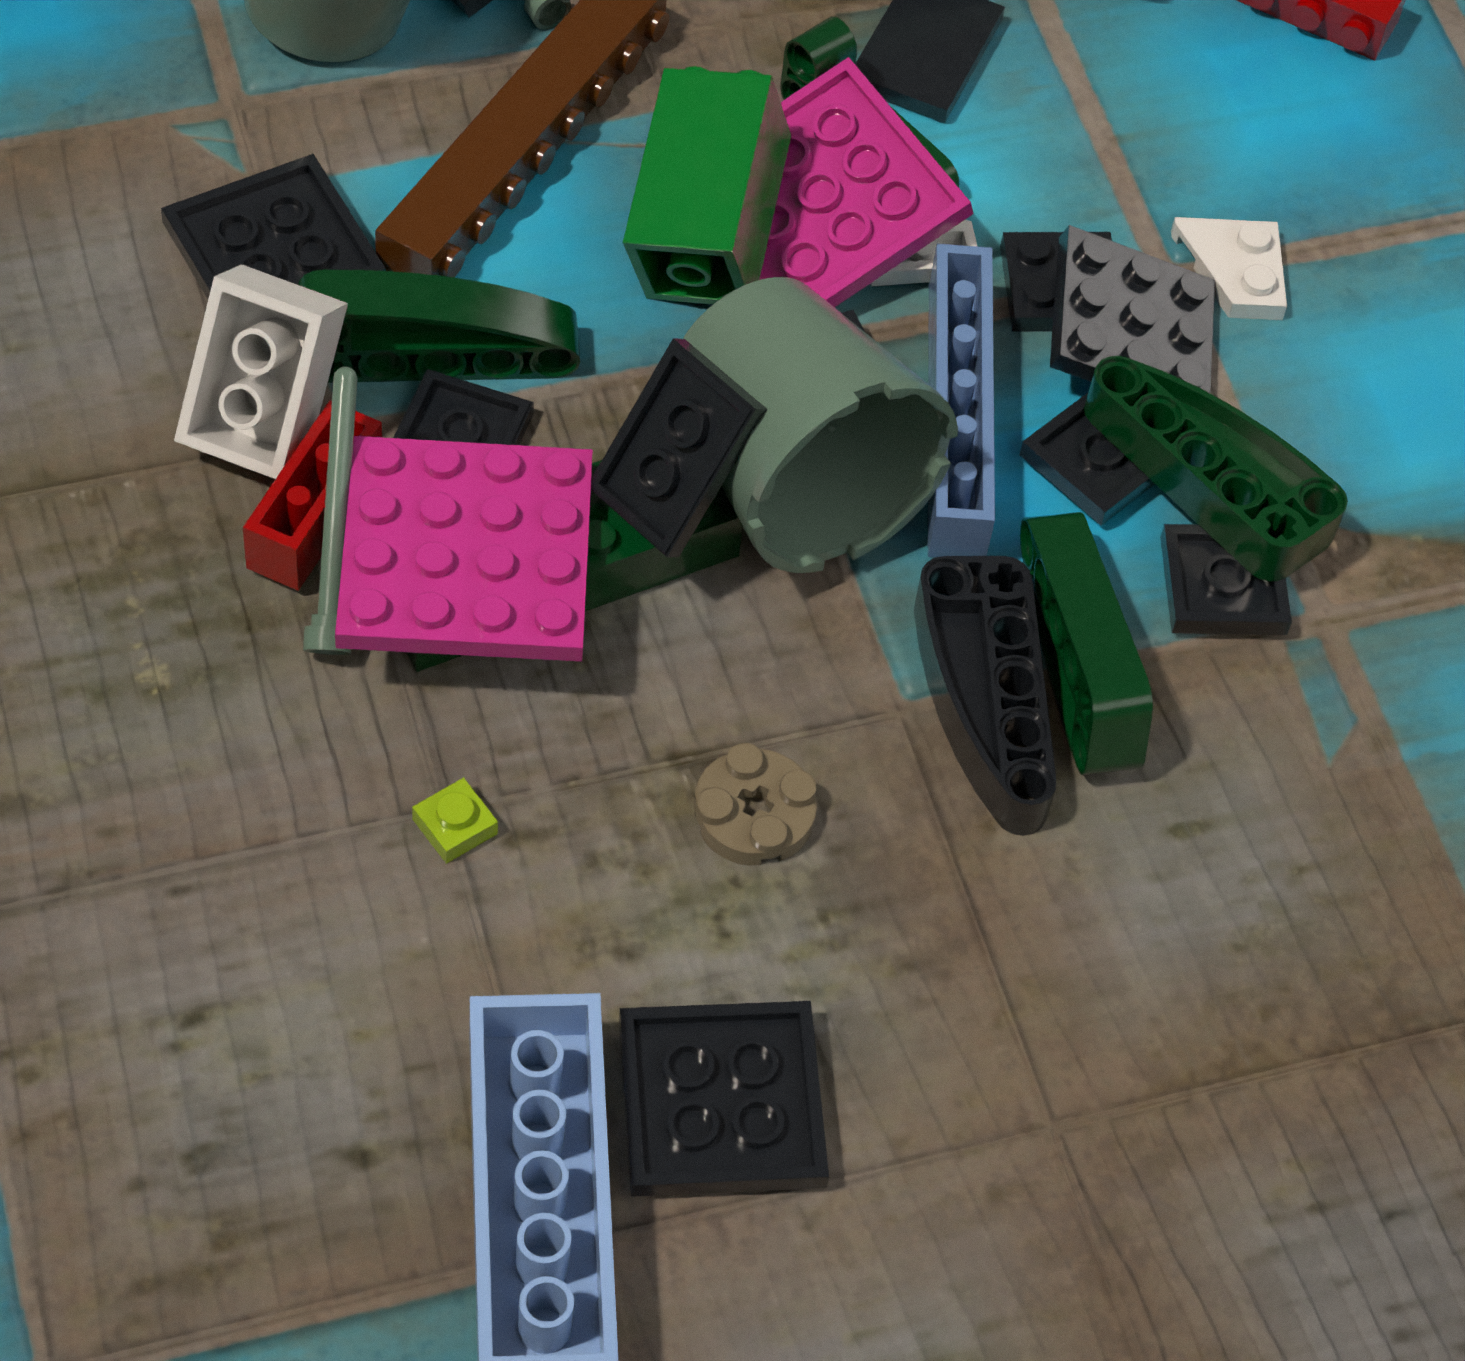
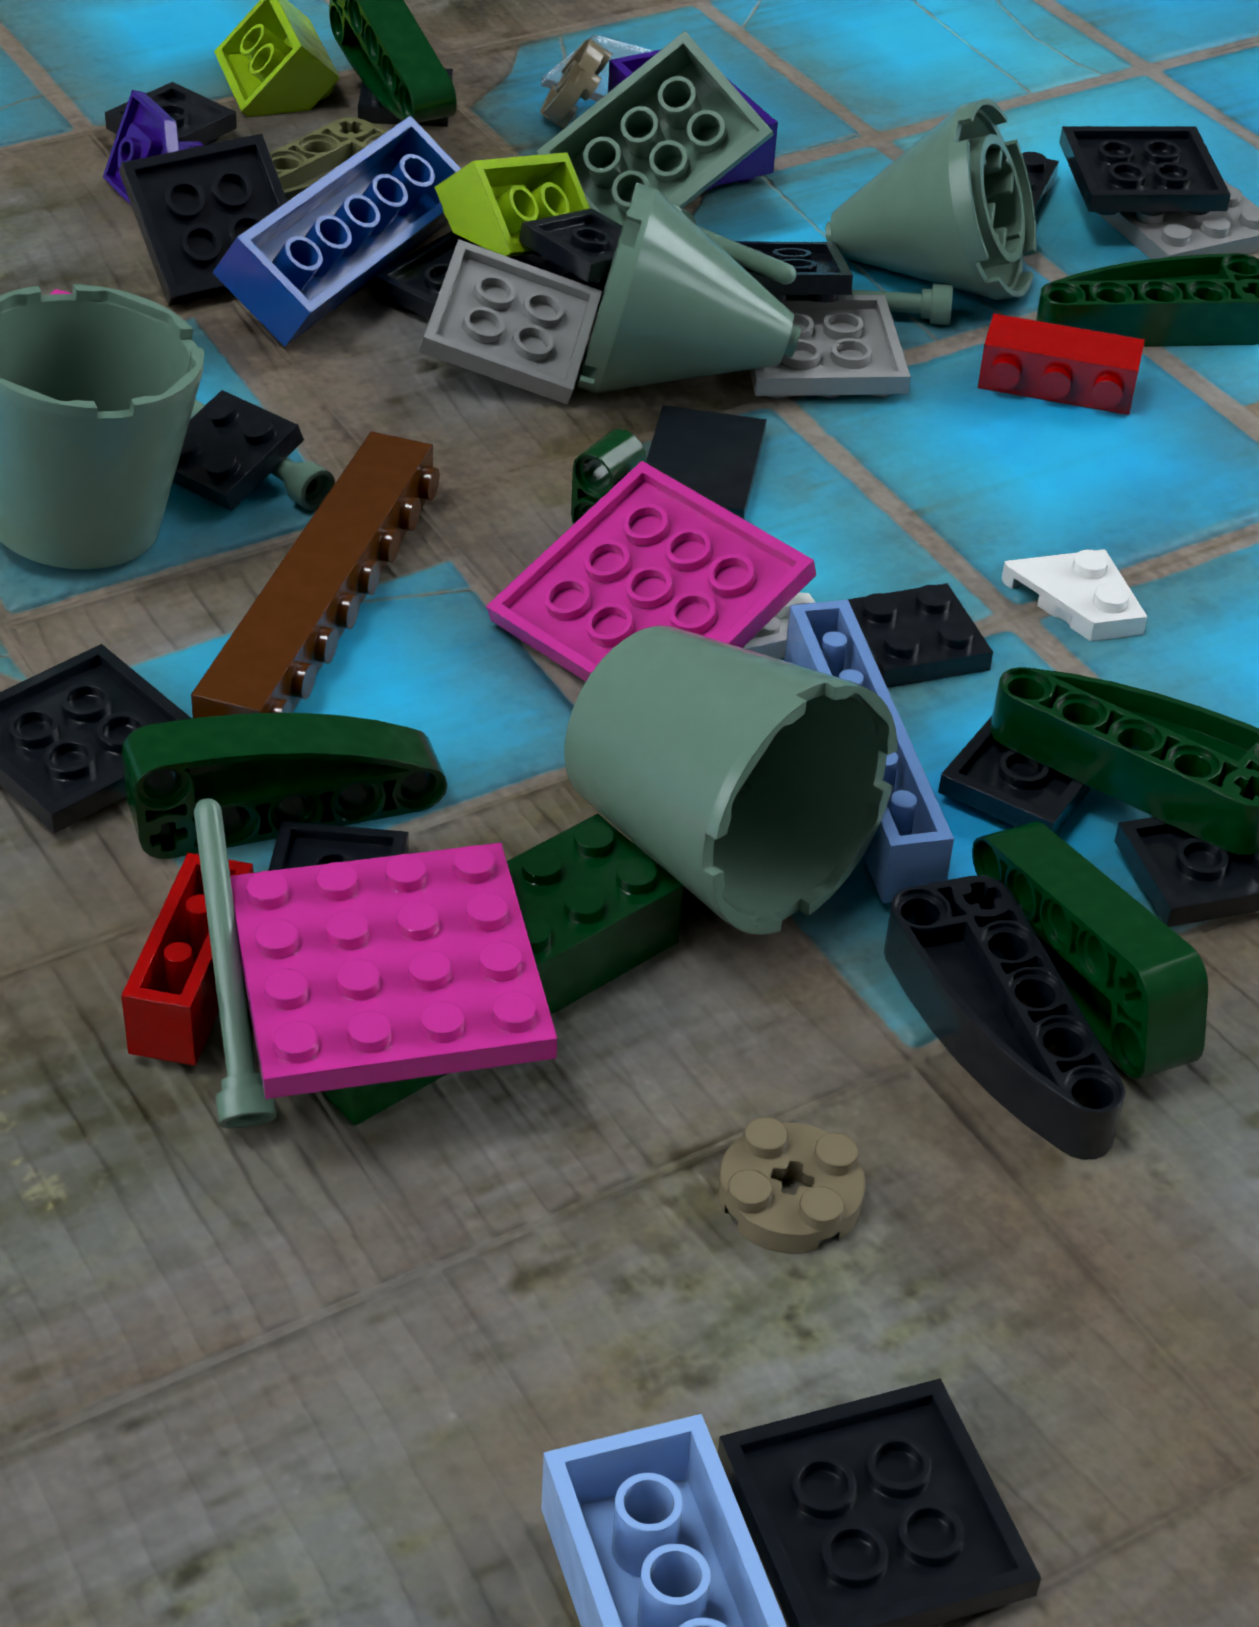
camera: 10 degrees left, 15 degrees down
(259, 369) = (99, 836): white brick -> none
(454, 820) = (450, 1272): lime plate -> none
(676, 447) = (602, 810): black tile -> none
(707, 184) = (535, 589): green brick -> none
(1129, 307) = (987, 630): plate -> none

